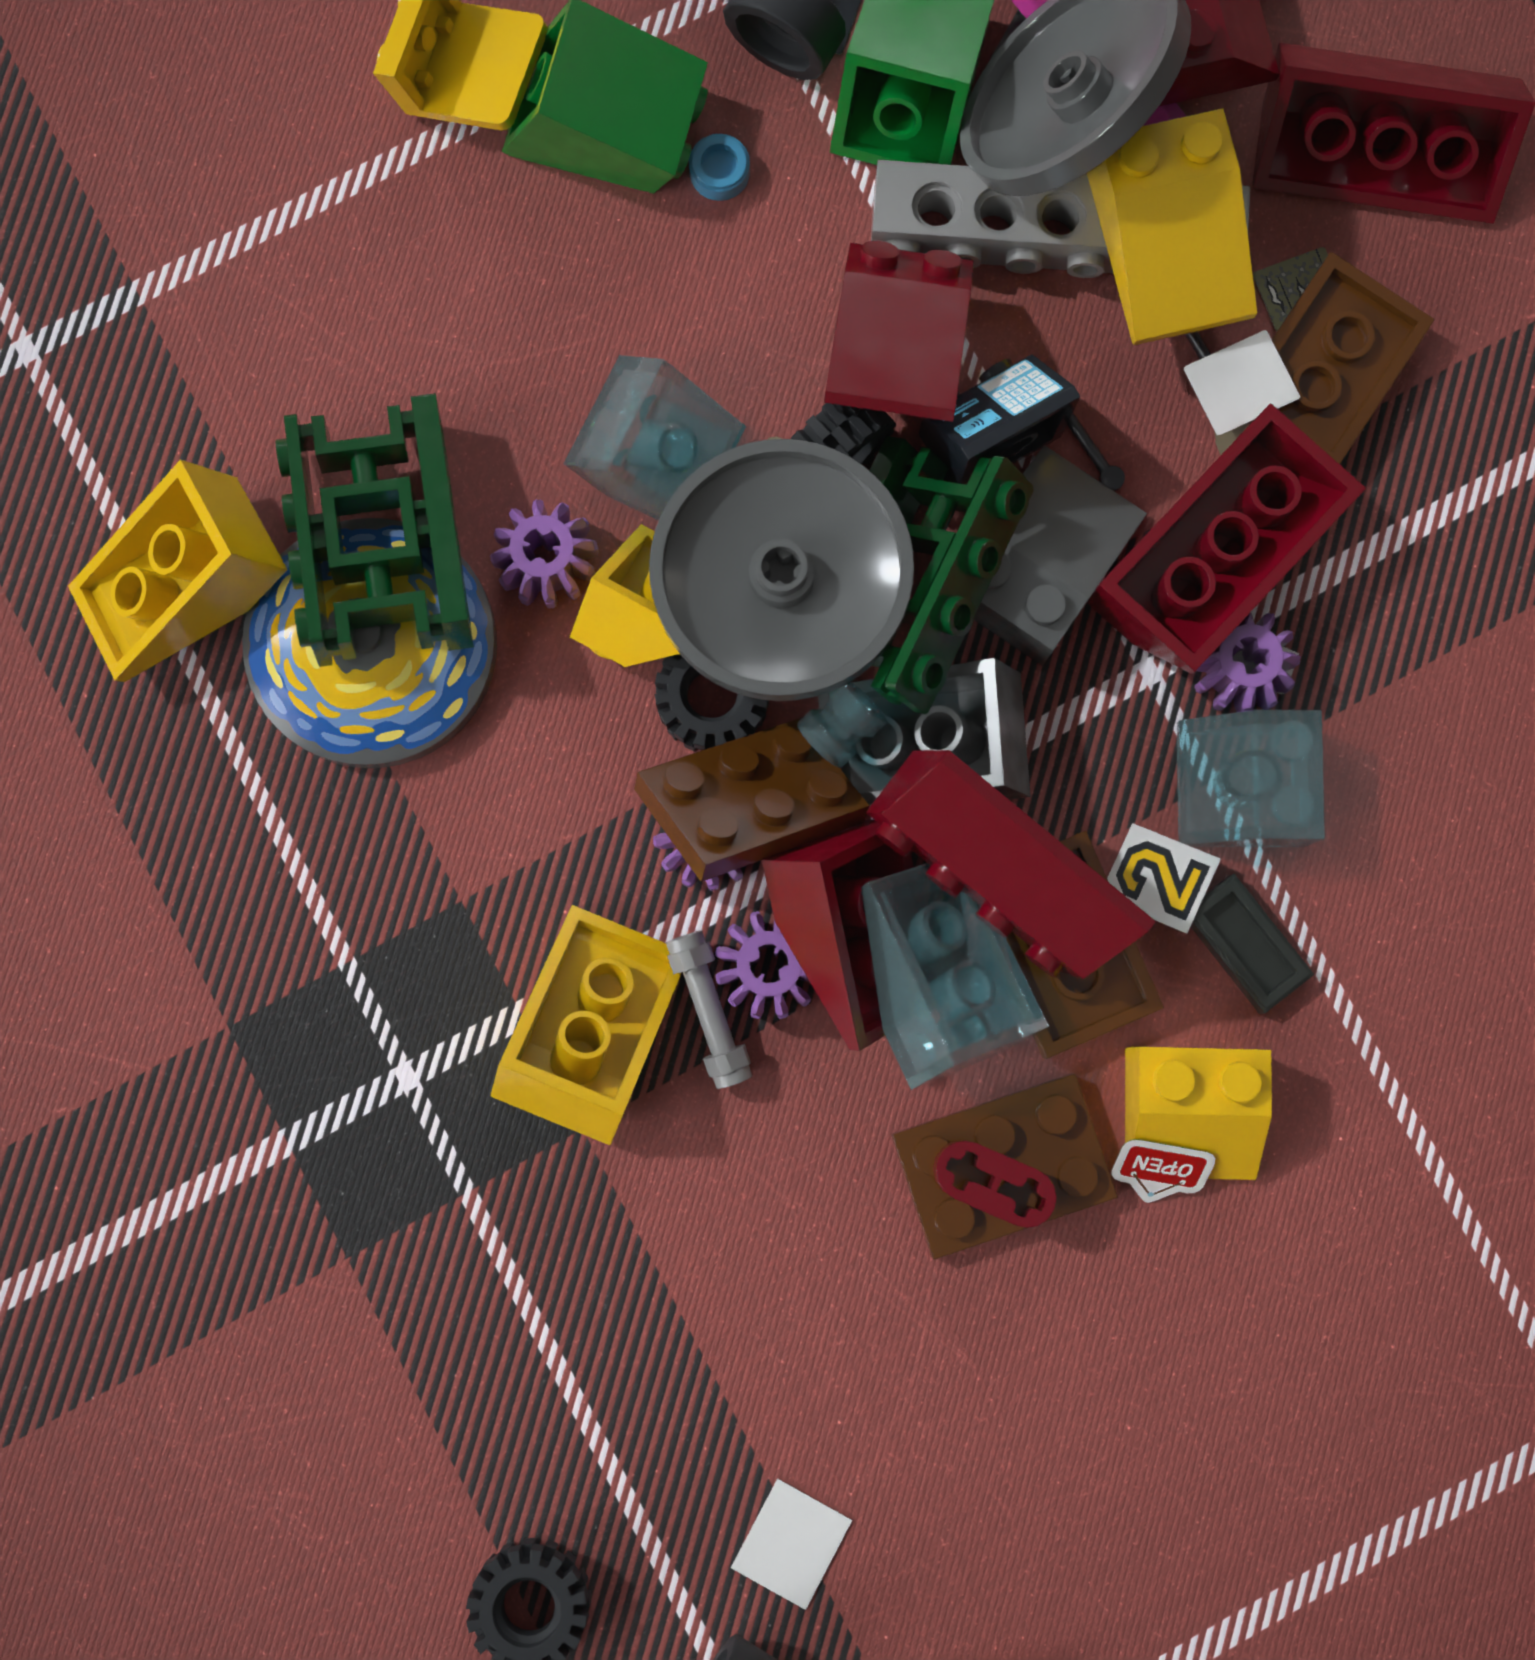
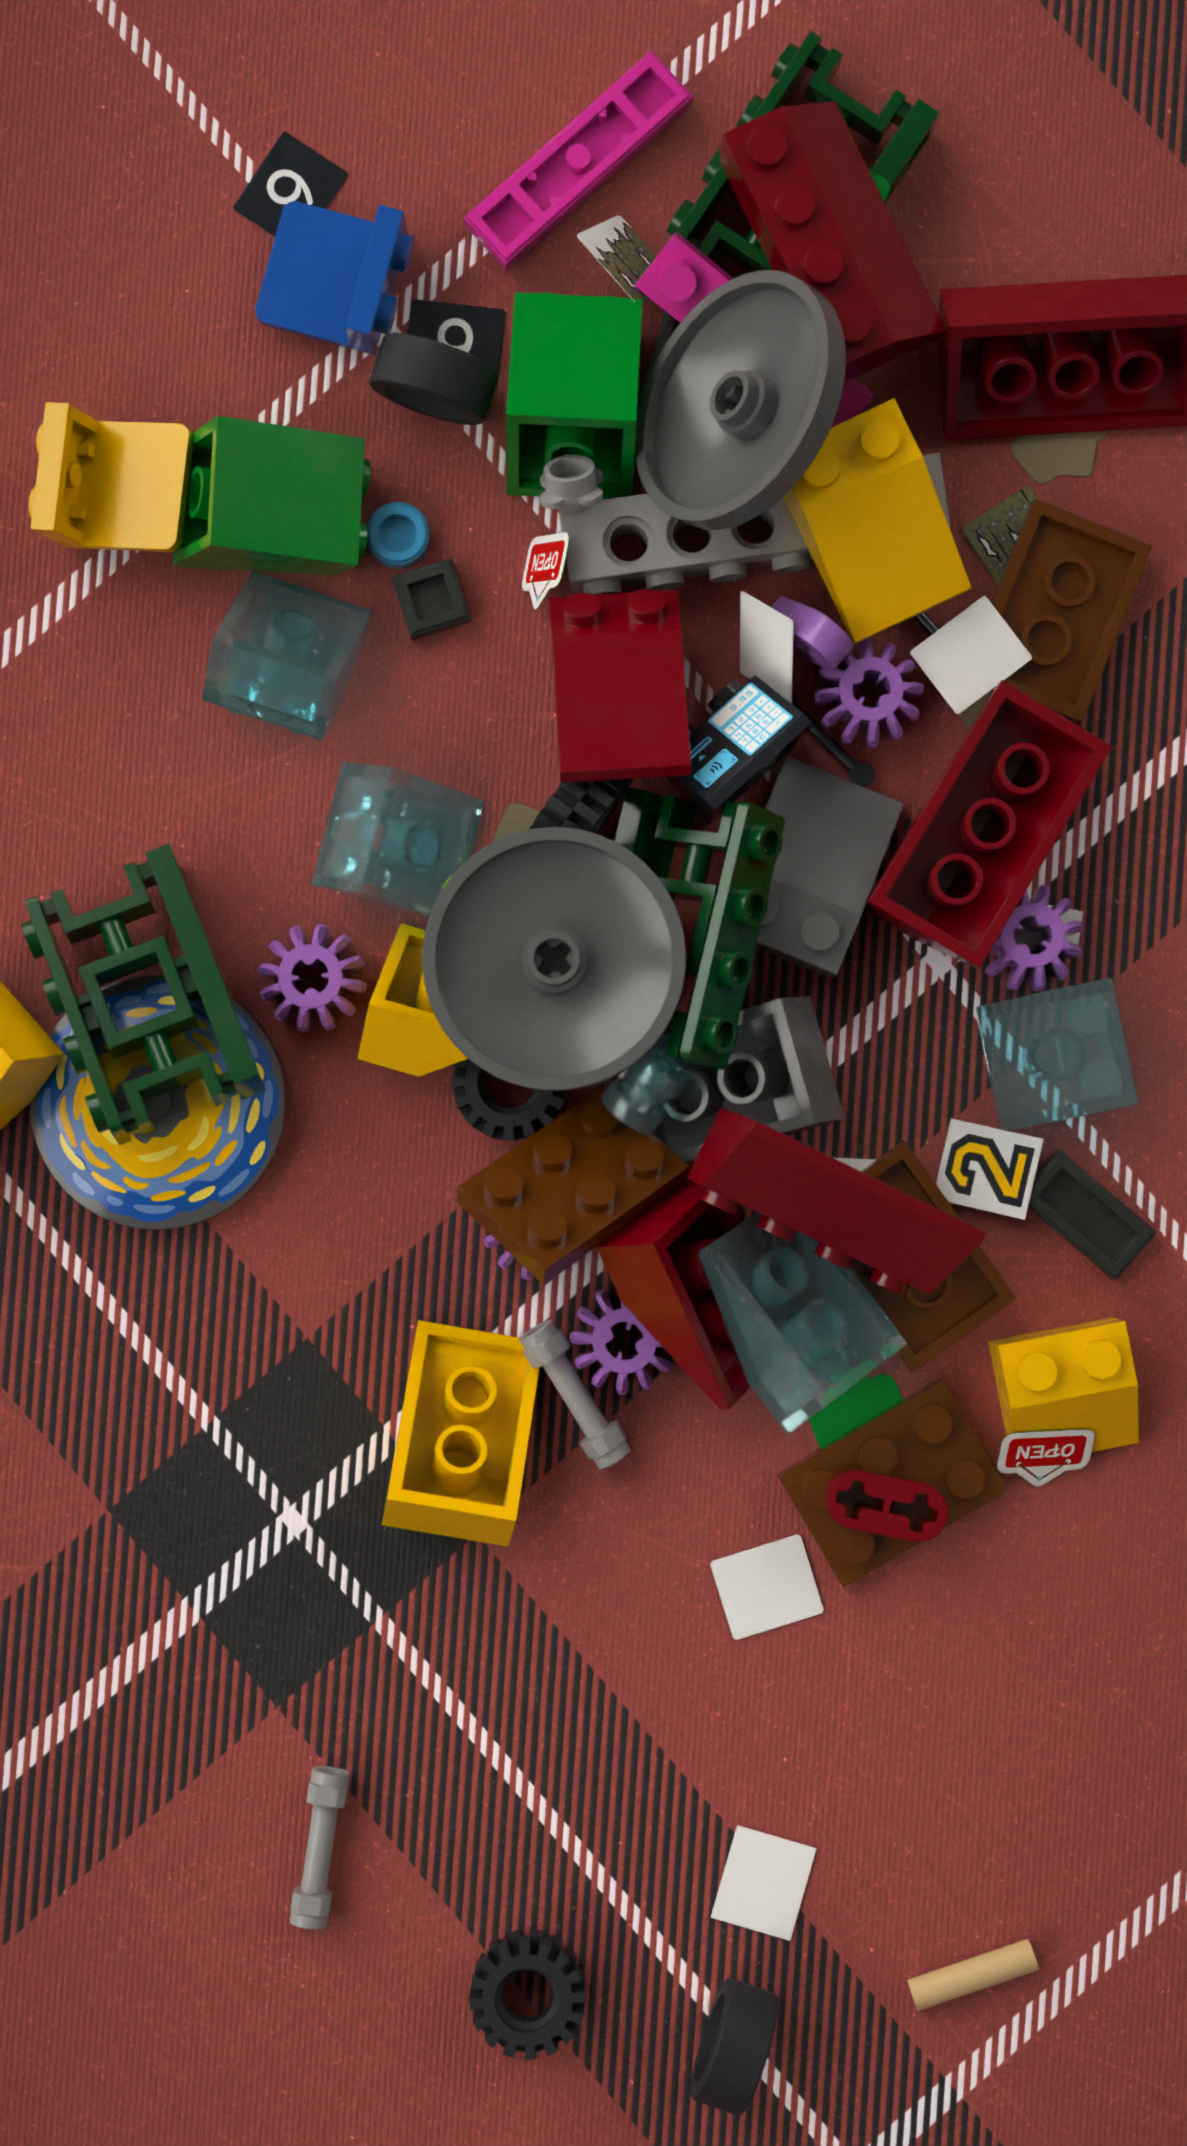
camera: 15 degrees left, 5 degrees up
(334, 1460) = (312, 1900): none -> light grey bar
(586, 250) = (285, 655): none -> clear light blue slope
(737, 231) = (431, 599): none -> pearl dark grey tile
(852, 215) = (544, 565): none -> sticker
(857, 1244) = (767, 1587): none -> white sticker
(893, 139) = (570, 483): none -> light grey plate
(979, 1084) = (855, 1407): none -> green sticker
(1048, 325) = (766, 645): none -> white sticker
(1089, 327) = (815, 635): none -> medium lavender beam
(1141, 378) = (888, 706): none -> medium lavender gear
(1356, 223) = (1057, 454): none -> dark tan sticker

